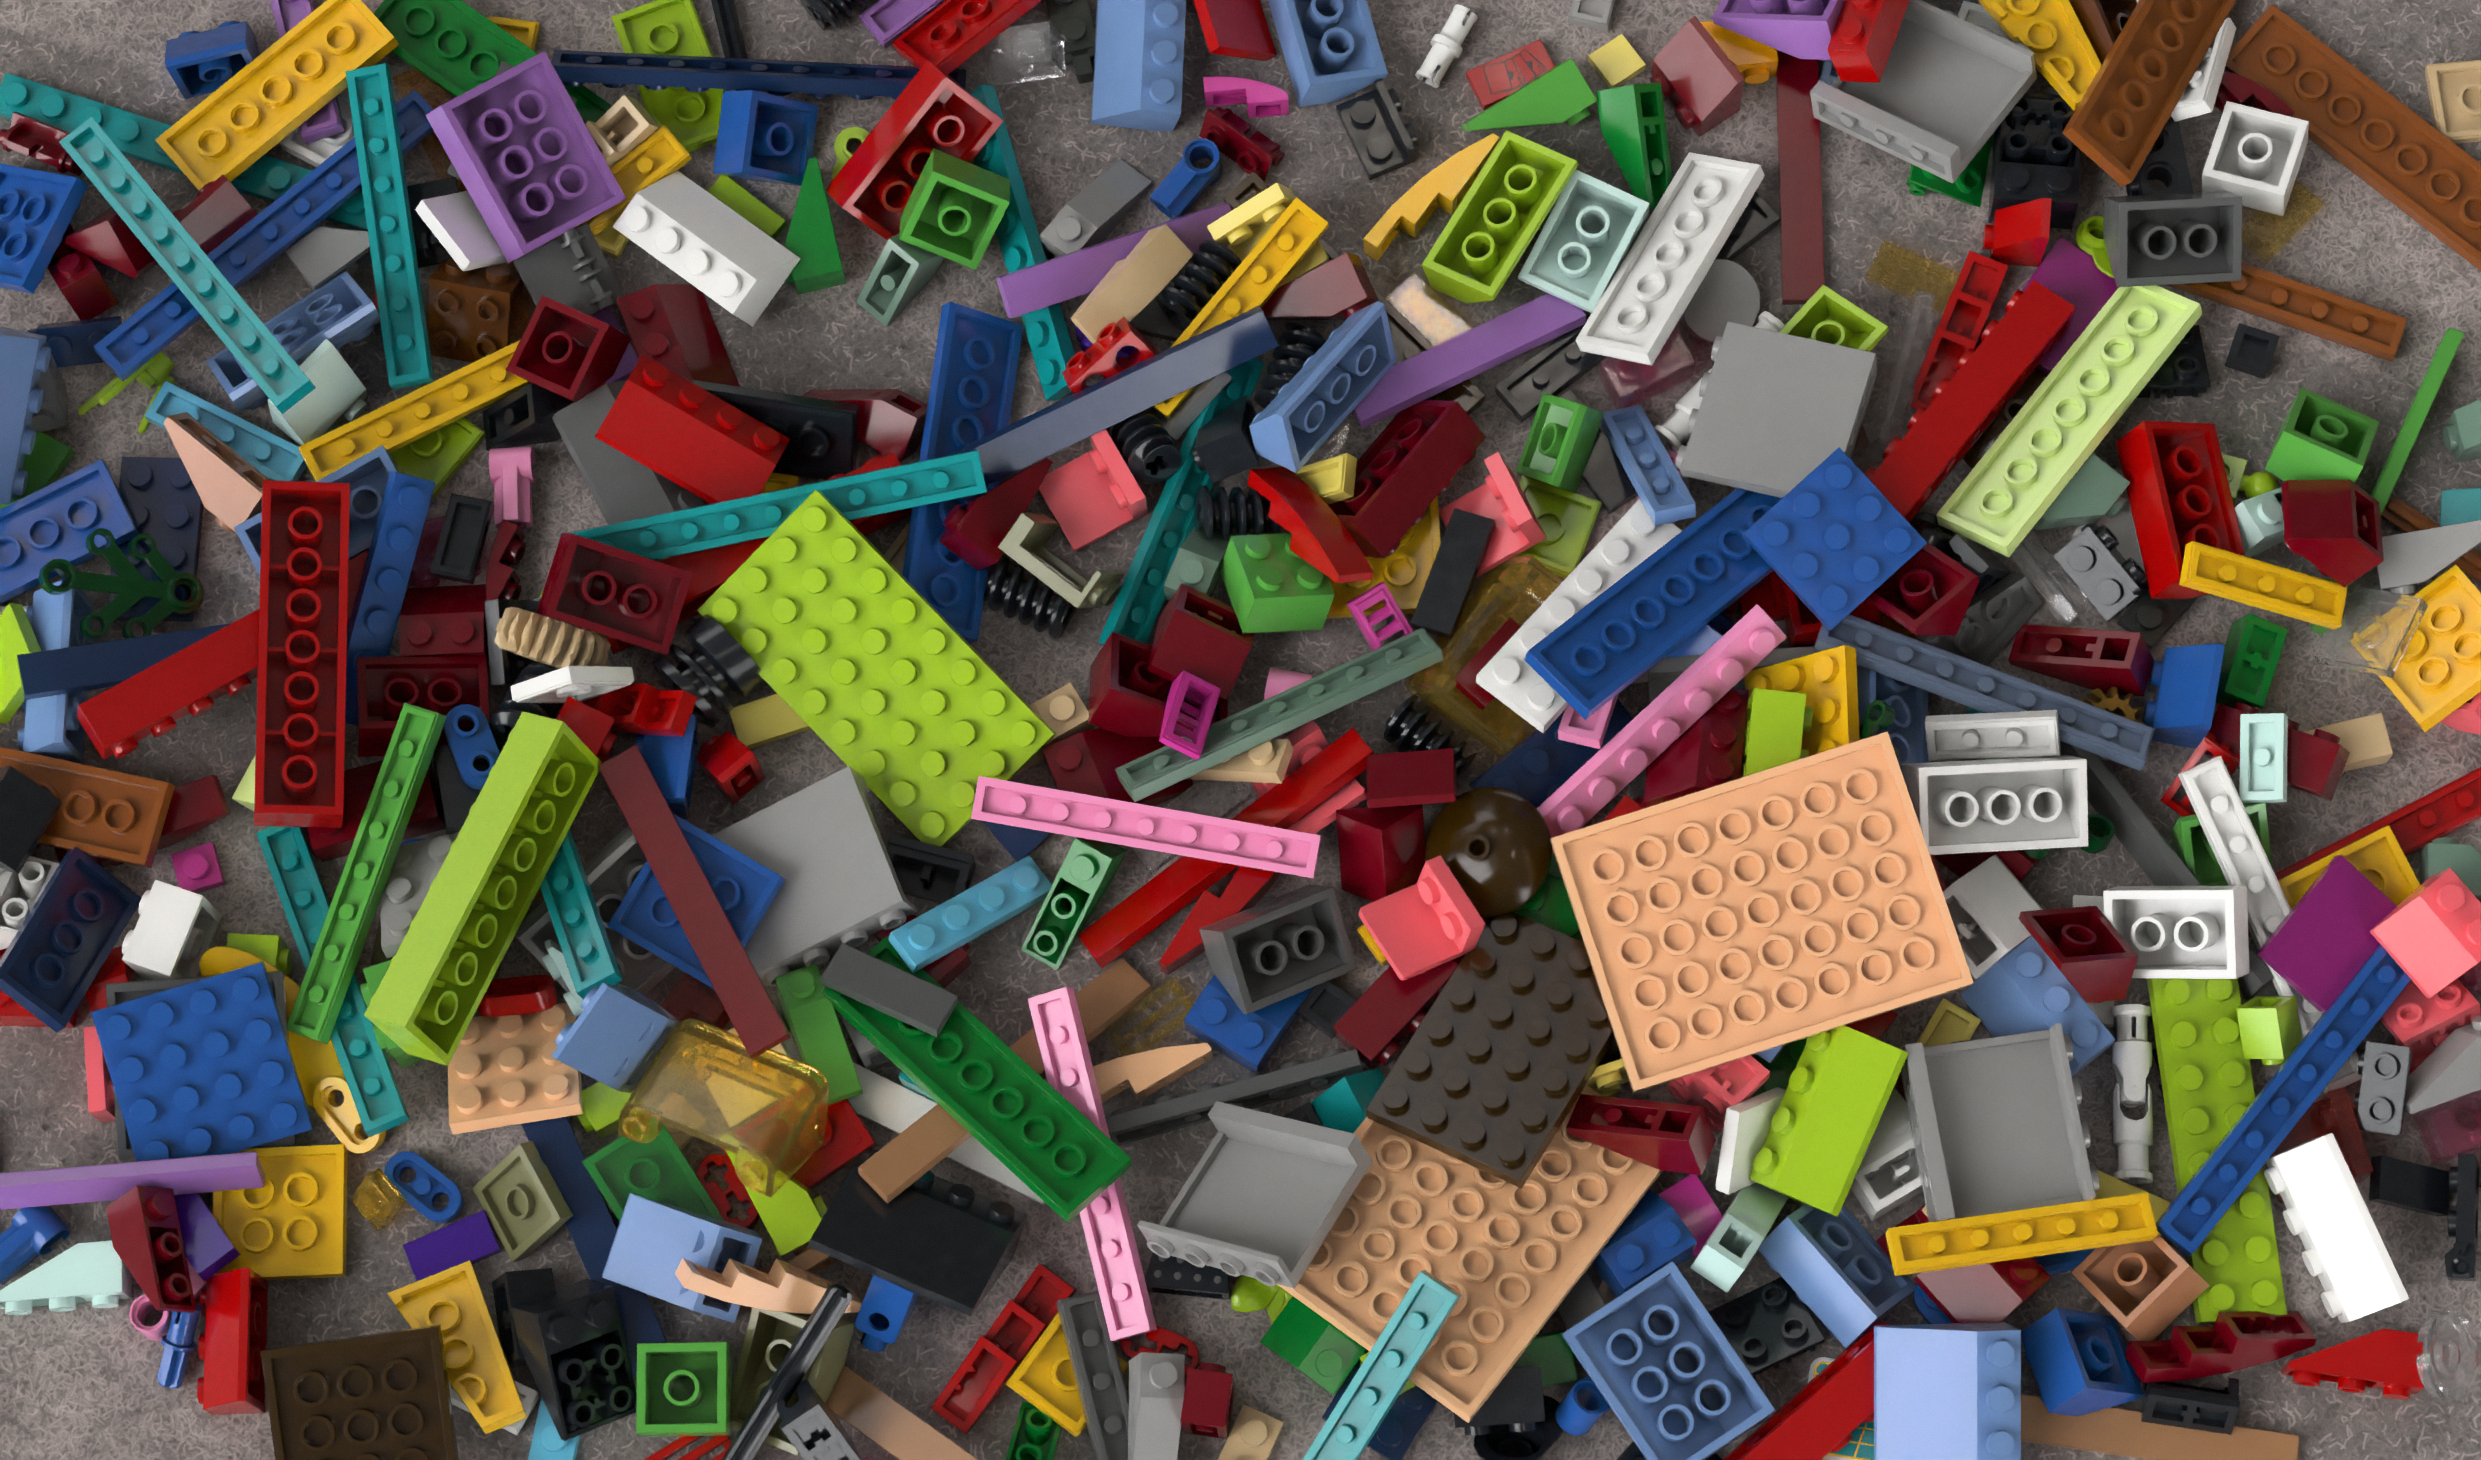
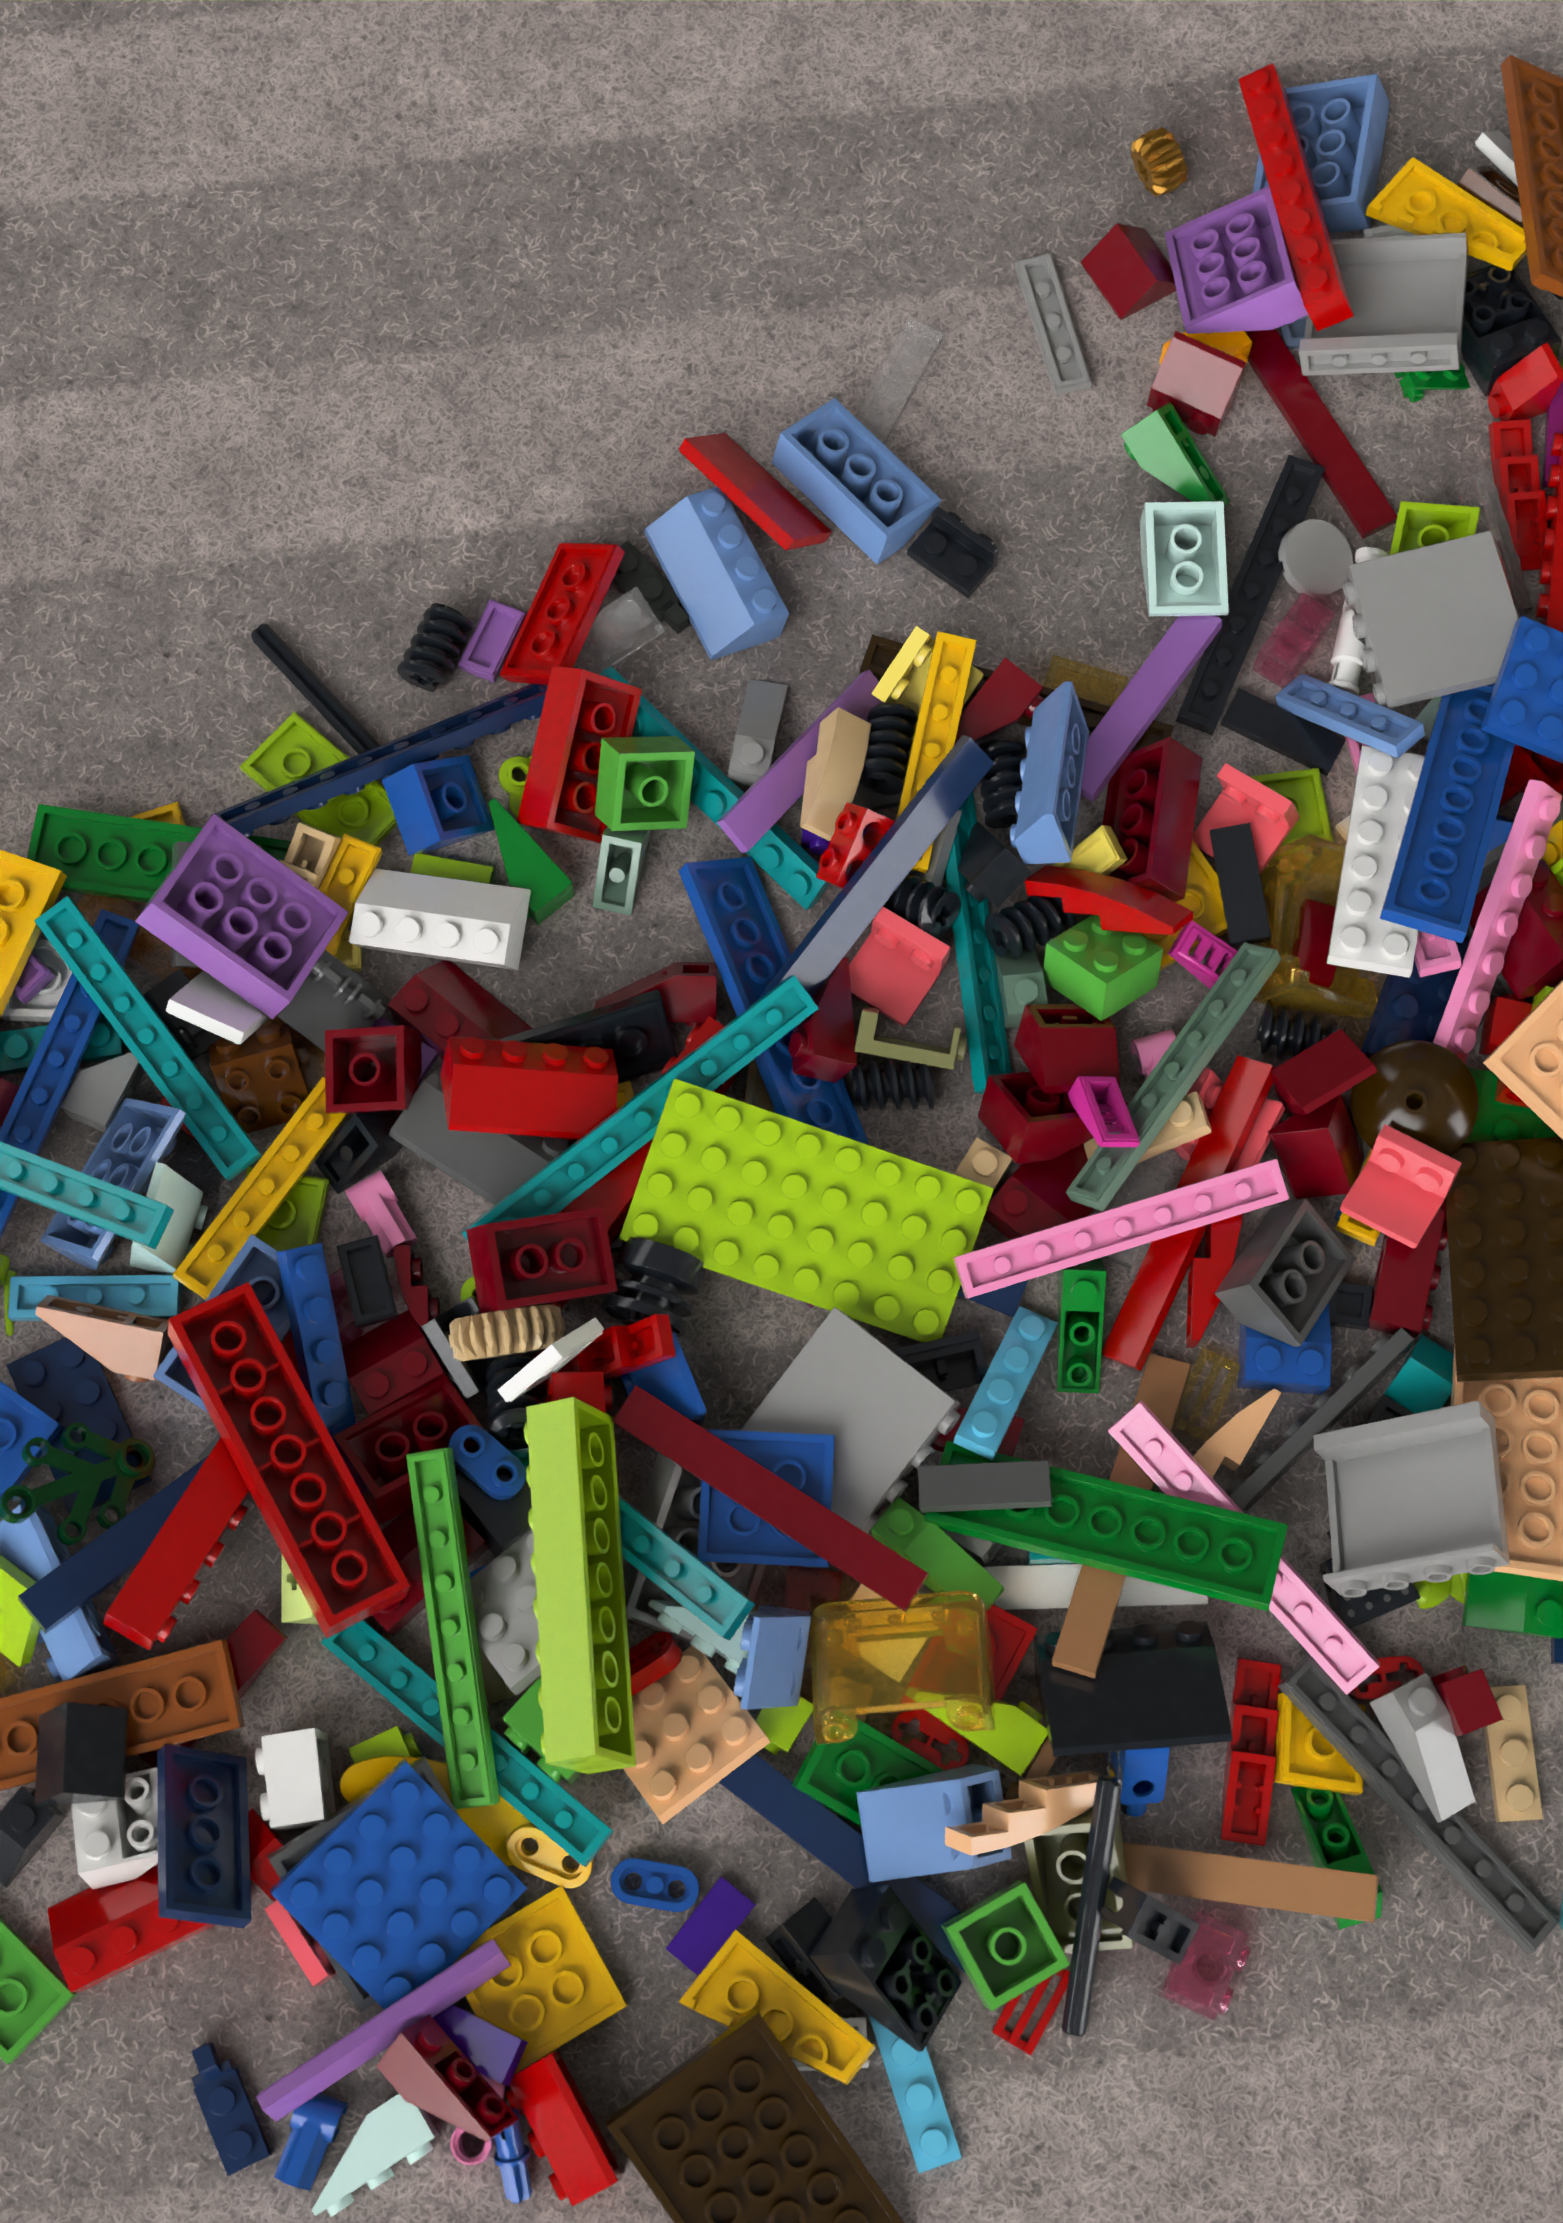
camera: 35 degrees left, 0 degrees up
(198, 868) = (282, 1703): dark pink plate -> none
(378, 1199) = (620, 1919): clear yellow plate -> none
(522, 1201) = (756, 1850): olive hinge -> none
(730, 766) = (717, 1360): red slope -> none
(766, 721) = (724, 1305): light yellow tile -> none
(1187, 182) = (820, 668): blue piece -> none
(1230, 137) = (834, 617): dark red hinge -> none
(1261, 98) = (838, 572): dark pink slope -> none
(1439, 188) = (1035, 577): yellow slope -> none
(1446, 46) = (969, 458): white pin -> none
(1497, 219) = (1106, 575): lime slope -> none
(1508, 73) = (1035, 457): red tile -> none
(1545, 101) = (1082, 459): bright green slope -> none
(1560, 442) = (1257, 733): bright green slope -> none
(1616, 62) = (1115, 407): light yellow tile -> none
(1670, 258) = (1265, 540): white plate -> none
(1908, 273) = (1450, 465): clear yellow tile -> none

